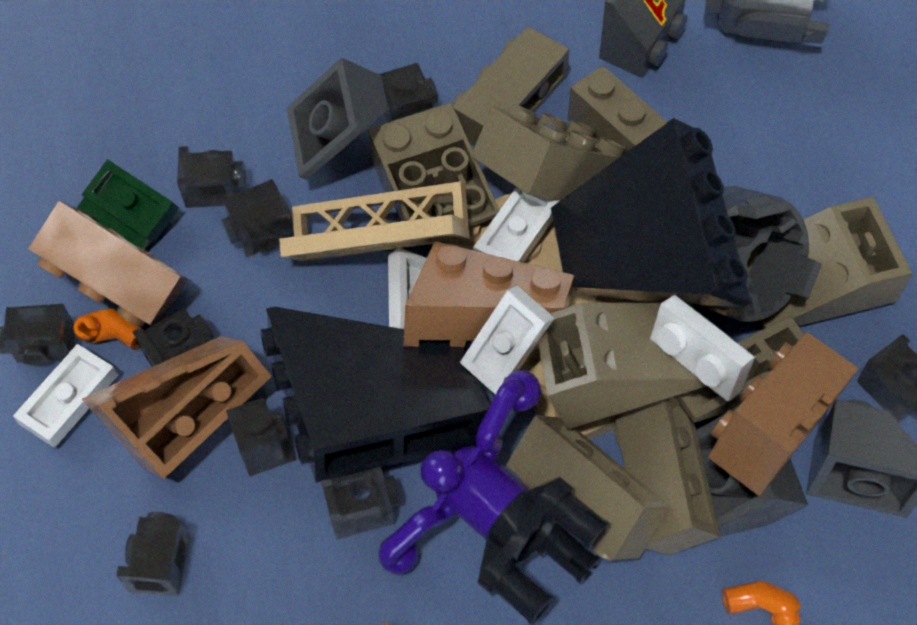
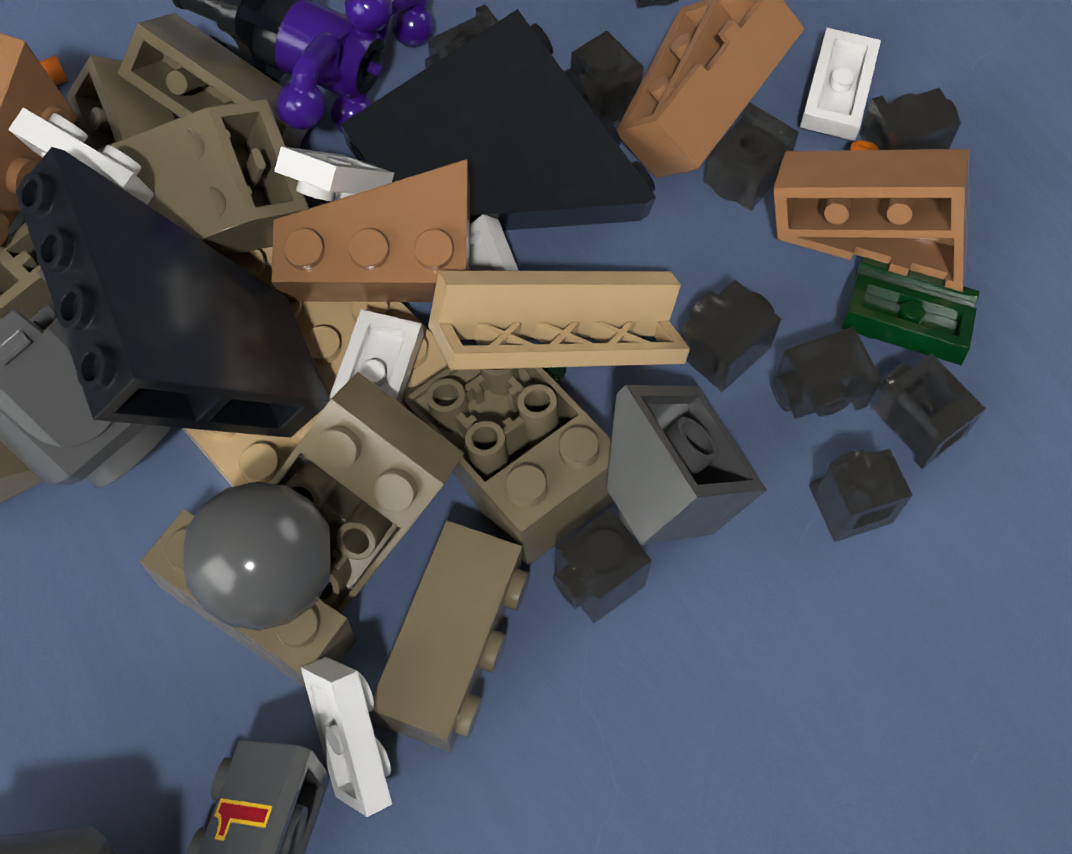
camera: 160 degrees right, 5 degrees up
(158, 147) = (927, 408): none -> clear smoke brick
(227, 103) = (860, 493): none -> clear smoke brick
(582, 41) = (352, 753): none -> white plate
(616, 95) = (257, 555): none -> dark grey piece

